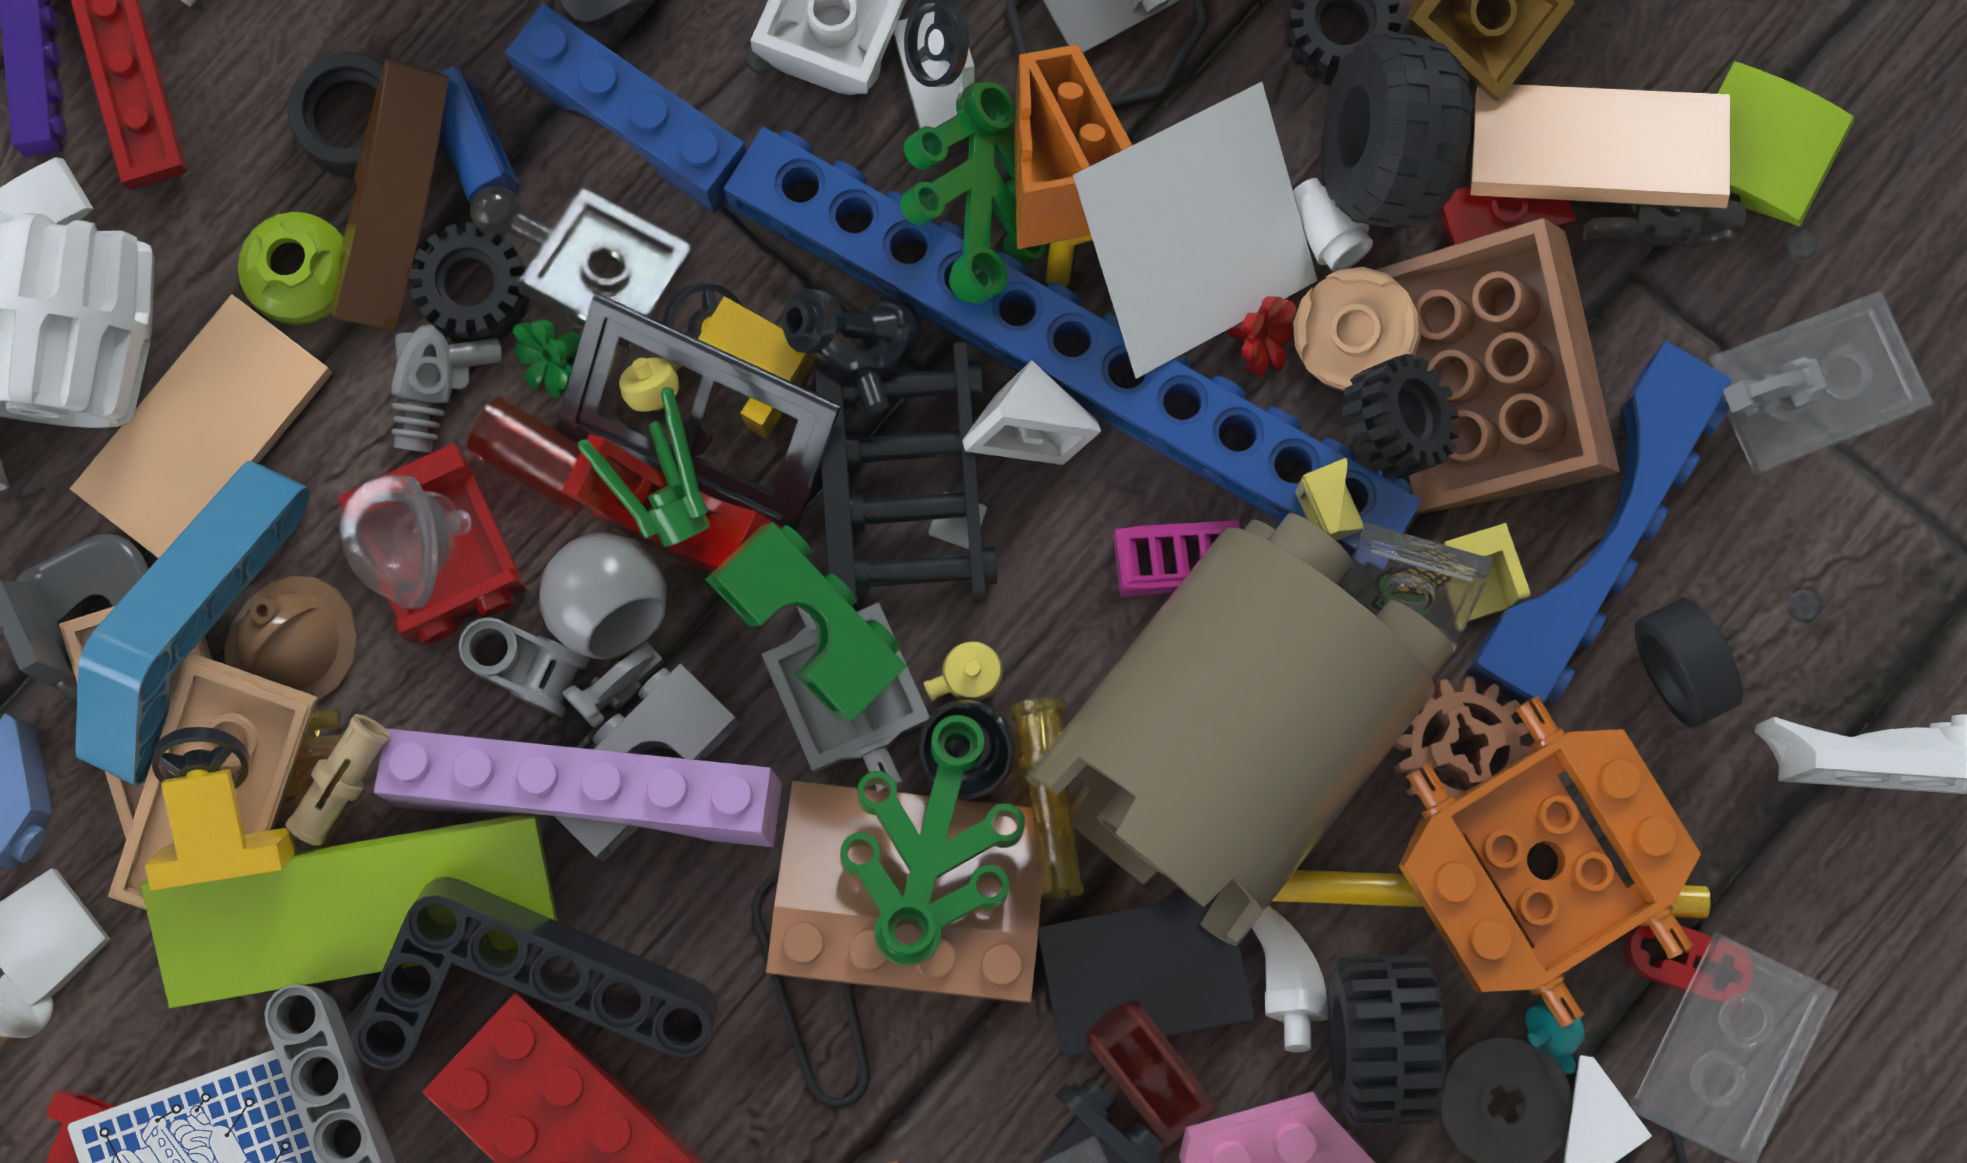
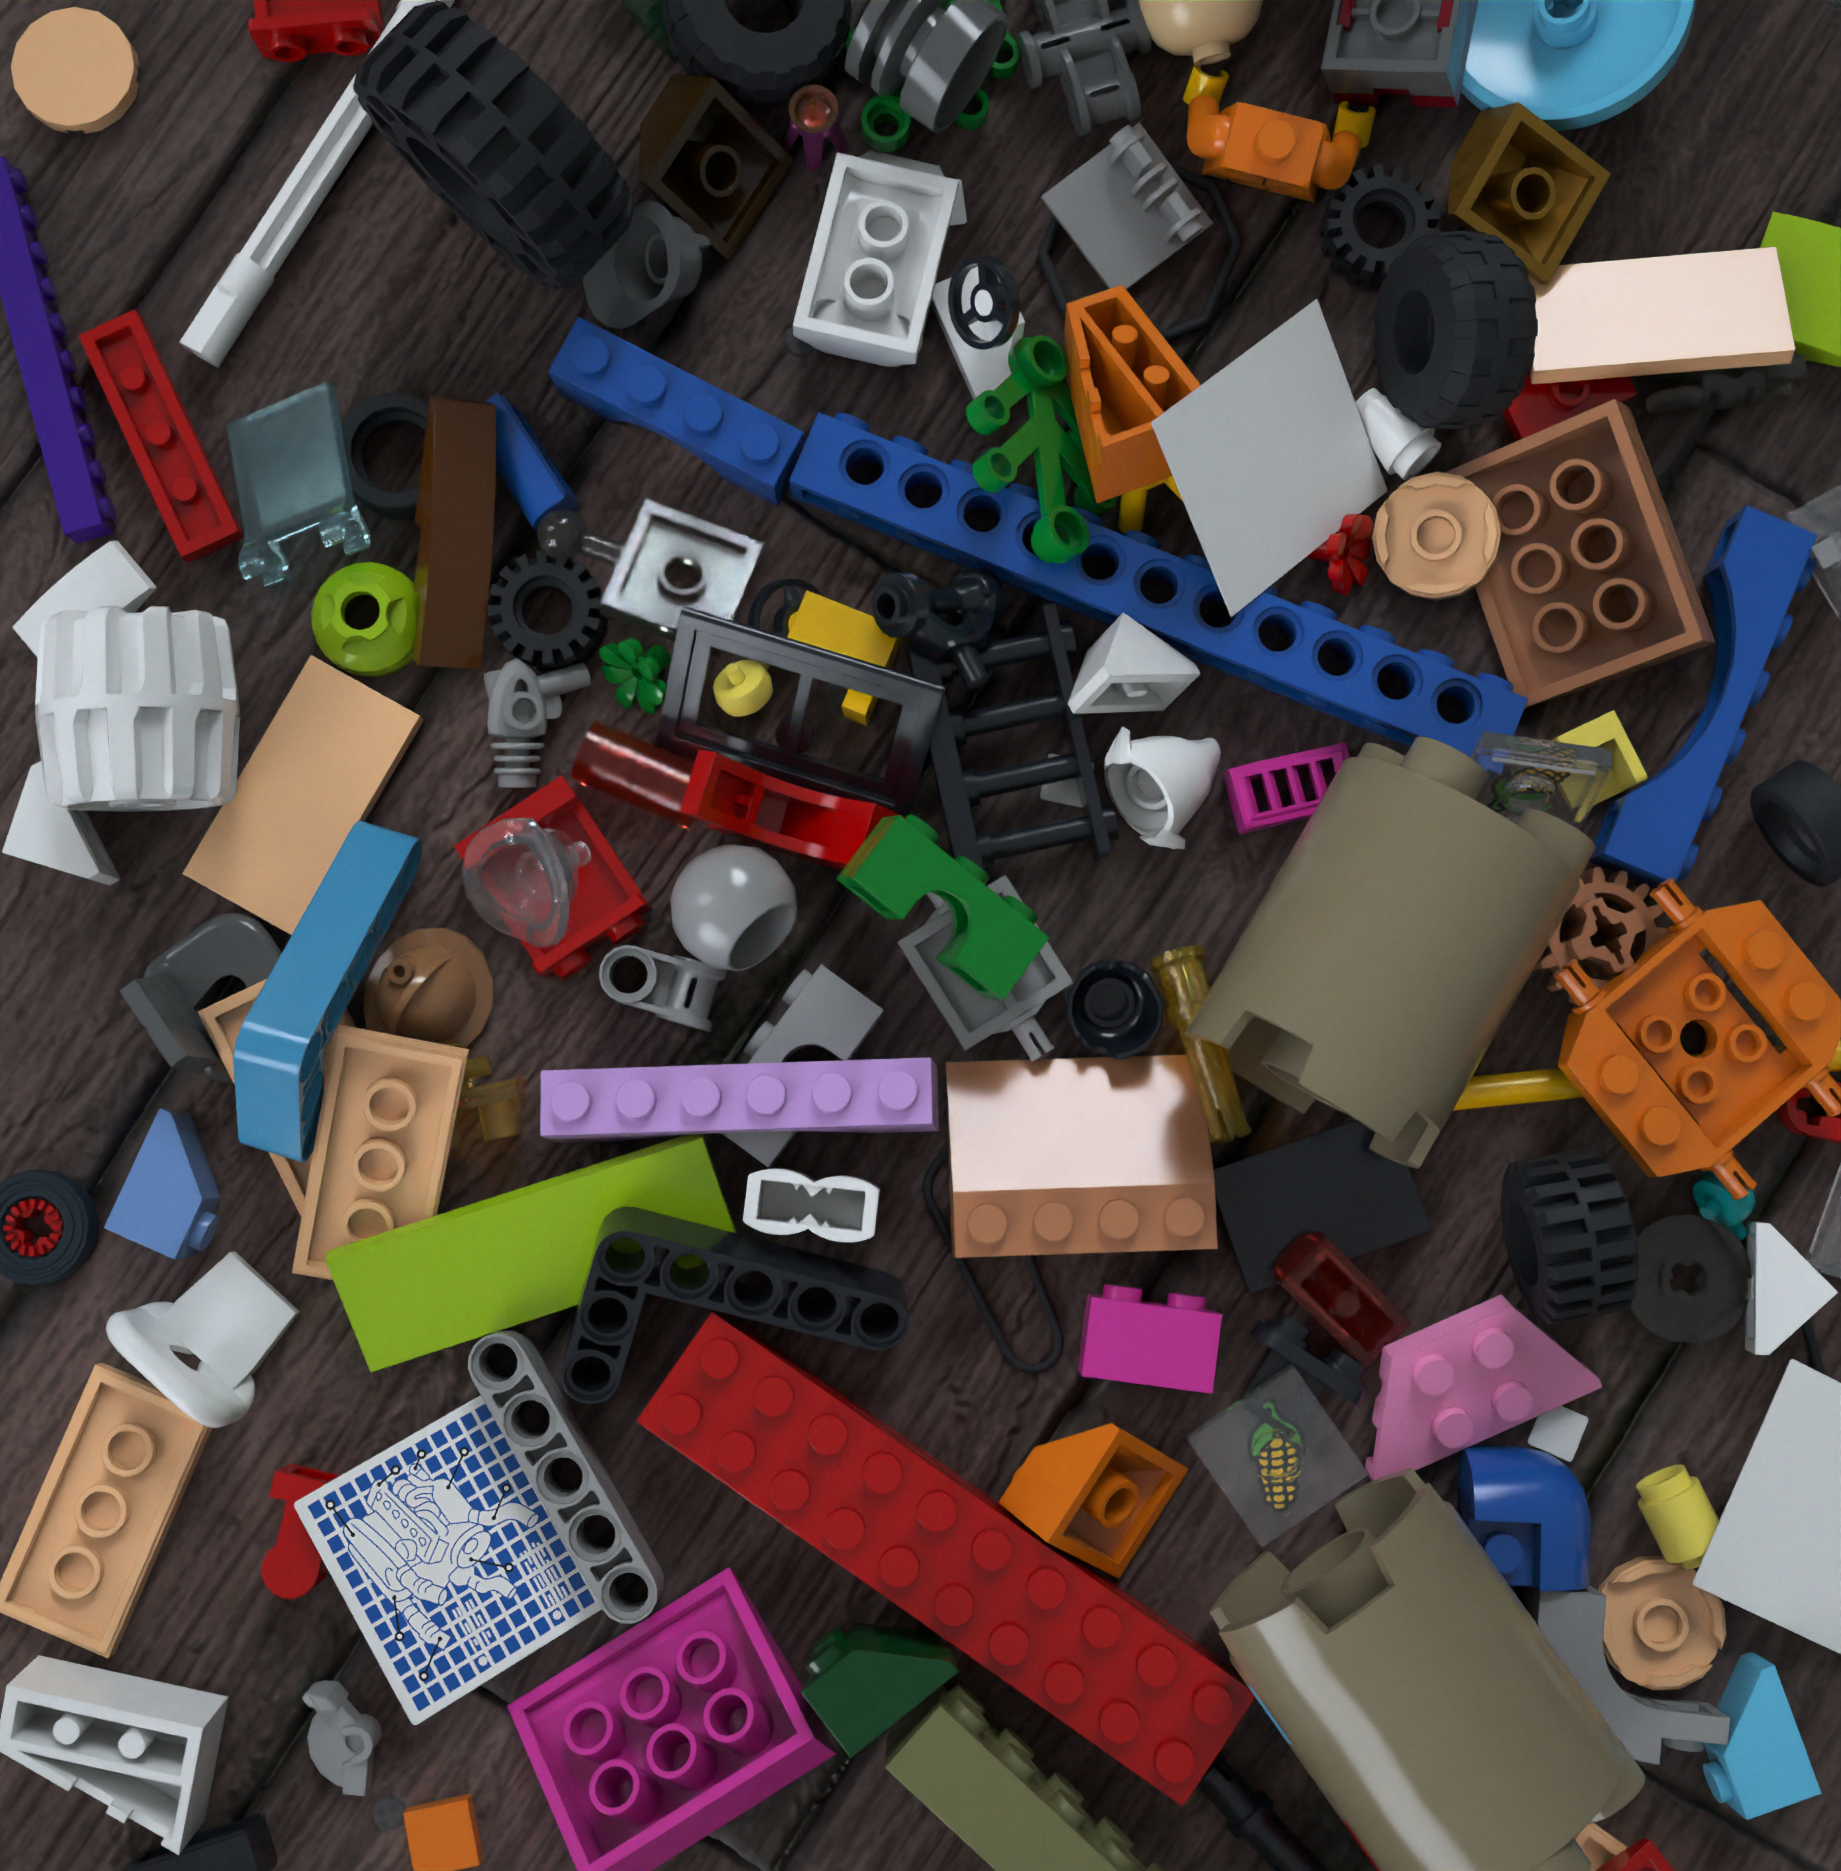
camera: 10 degrees left, 5 degrees up
(207, 816) = (381, 1185): yellow piece -> none
(242, 124) = (292, 480): none -> clear light blue flag
(315, 813) = (486, 1163): tan pin -> none
(616, 685) = (756, 992): light grey piece -> none
(619, 898) = (791, 1201): none -> white brick
(676, 509) = (798, 809): green plant -> none
(929, 853) = (1097, 1118): green plant -> none
(951, 1087) = (1150, 1340): none -> dark pink brick
(968, 672) = (1103, 931): light yellow piece -> none
(1057, 524) = (1169, 772): none -> white hat
(1293, 980) = (1464, 1193): white bar -> none
(1328, 500) = (1437, 712): light yellow slope -> none
(1401, 416) = (1498, 618): black tyre -> none

